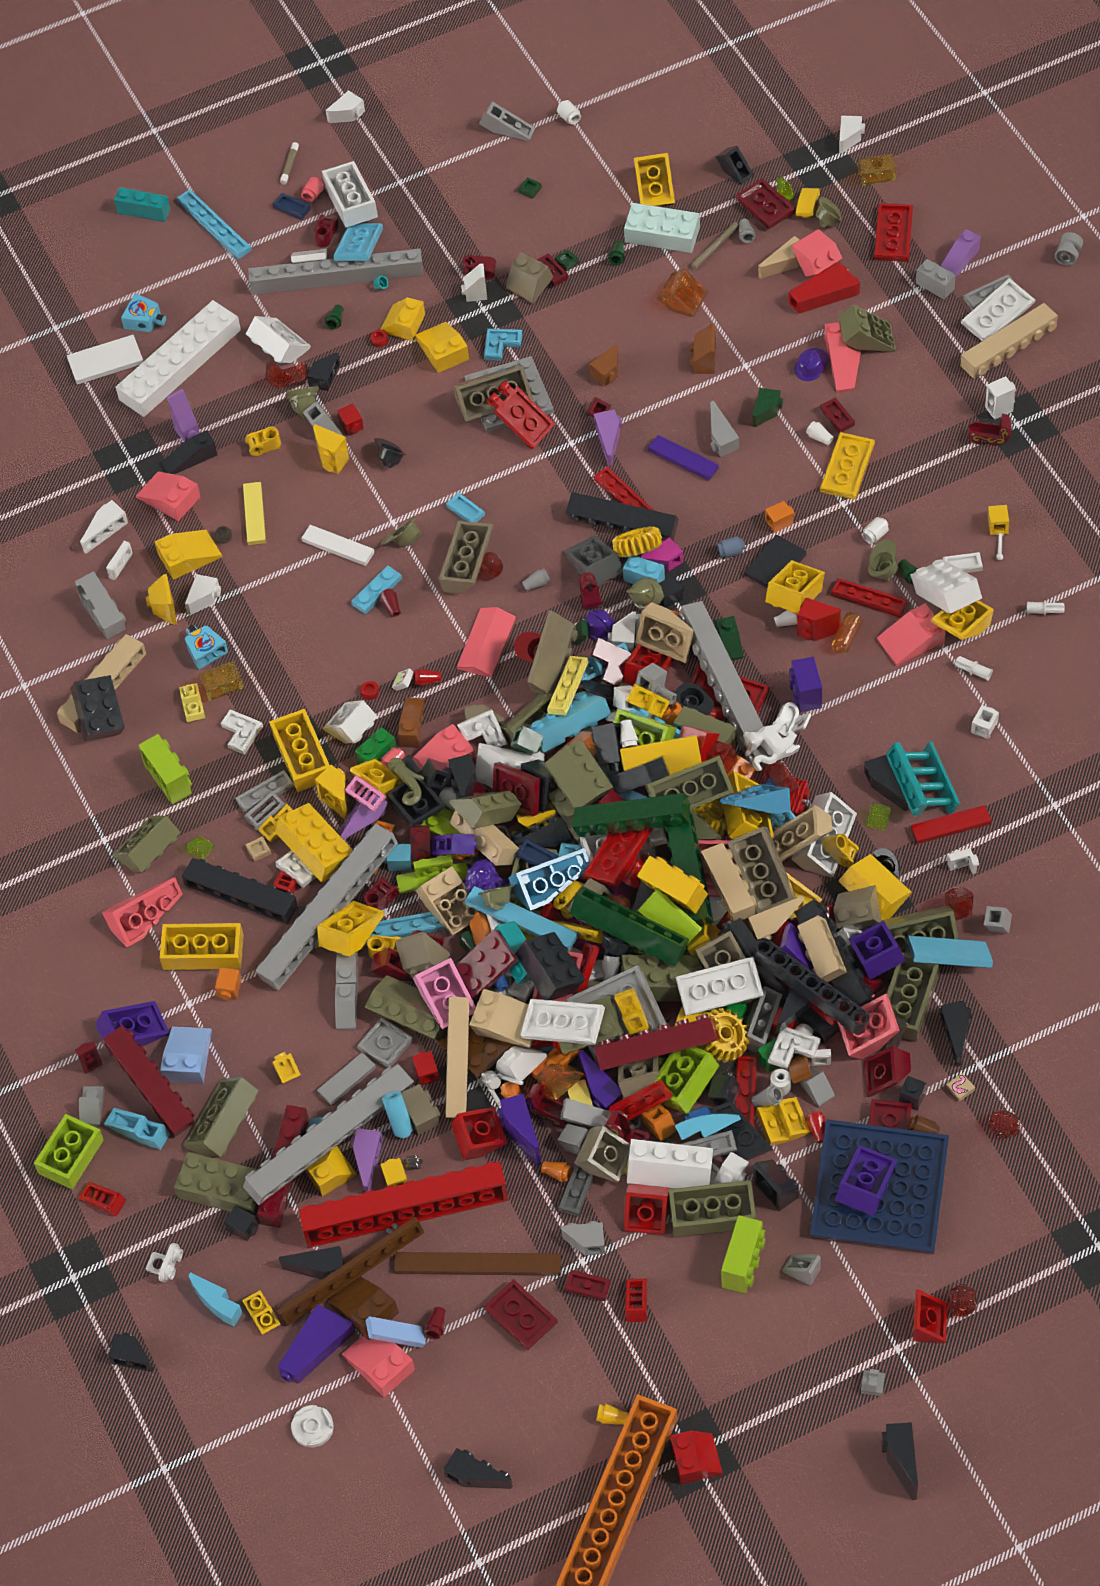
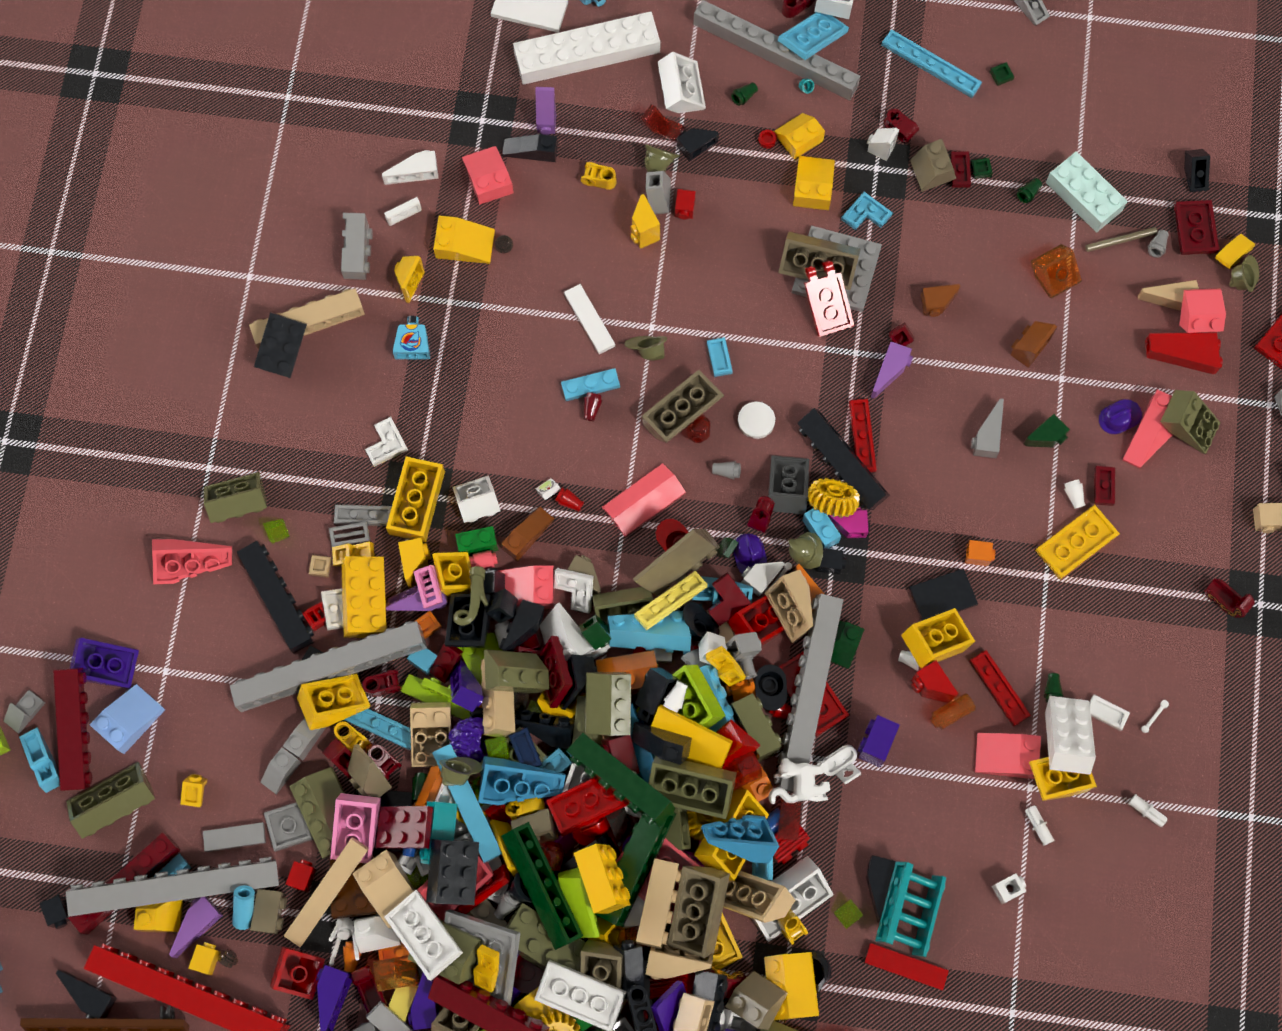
camera: 30 degrees right, 15 degrees up
(88, 1056) = (43, 667): dark red plate -> none
(165, 768) = (295, 440): lime brick -> none
(192, 702) = (366, 389): light yellow slope -> none
(201, 946) = (206, 629): yellow brick -> none
(202, 593) = (445, 290): white slope -> none
(214, 1183) = (61, 858): olive brick -> none
(221, 680) = (400, 385): clear yellow brick -> none
(228, 983) = (203, 679): orange brick -> none
(254, 513) = (544, 240): light yellow tile -> none
(261, 1312) = (15, 1004): yellow slope -> none
(306, 256) = (763, 19): white tile -> none
(369, 690) = (515, 478): red tile -> none
(388, 452) = (694, 257): black piece -> none
(468, 212) = (931, 63): none -> medium azure tile
(512, 866) = (497, 747): none -> clear neon green slope
(531, 534) = (756, 420): none -> white tile
(568, 112) = (1089, 20): white brick -> none
(654, 180) = (1113, 140): yellow slope -> none
(683, 457) = (940, 434): dark purple tile -> none
(731, 547) = (915, 554): sand blue brick -> none
(784, 188) = (1224, 223): clear neon green plate -> none
(875, 530) = (1053, 626): white brick -> none
(883, 560) = (1036, 663): olive piece -> none
(963, 858) = (886, 1007): white bracket -> none
(998, 519) = (1170, 692): yellow brick -> none
(1000, 397) = (1262, 572): white brick -> none

